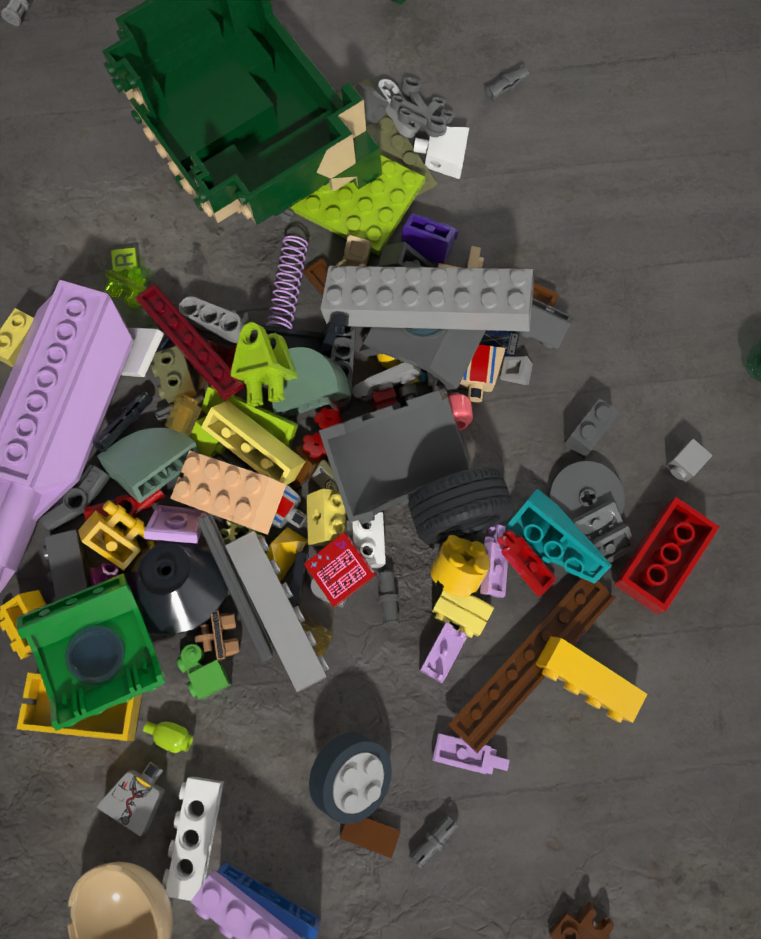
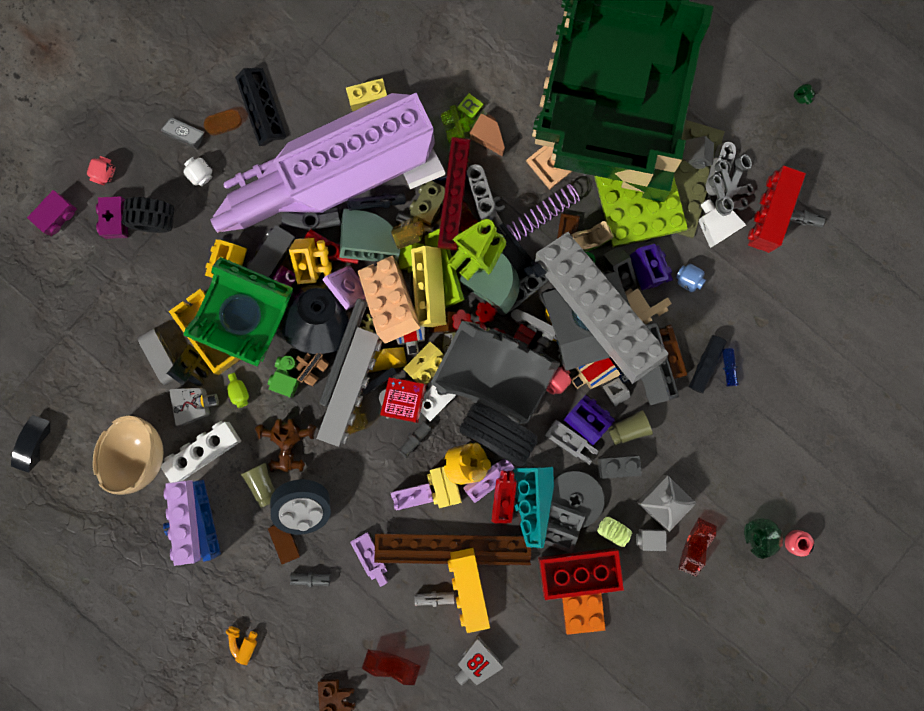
camera: 55 degrees right, 10 degrees up
(53, 787) = (157, 354): none -> light grey beam
(89, 766) = (185, 365): none -> black hinge
(167, 267) = (488, 134): none -> nougat slope
(249, 242) = (544, 167): none -> light nougat tile
(264, 728) = (285, 436): none -> reddish brown piece
(286, 802) = (259, 483): none -> olive plant
(472, 214) = (691, 277): none -> medium blue head
(479, 92) = (776, 209): none -> red brick
(522, 416) = (589, 419): none -> dark purple brick
(525, 452) = (569, 441): none -> light grey hinge
(564, 385) = (630, 428): none -> olive plant
(565, 270) = (707, 364): none -> black axle
(578, 711) = (420, 599): none -> light grey pin
(585, 254) = (730, 367): none -> clear blue axle
(597, 838) = (389, 665): none -> clear red brick
(652, 487) = (614, 531): none -> yellowish green gear
(664, 416) = (666, 502): none -> light grey piece
(671, 741) = (477, 663): none -> light grey torso
(708, 591) = (583, 614): none -> orange plate
(735, 436) = (695, 548): none -> clear red brick

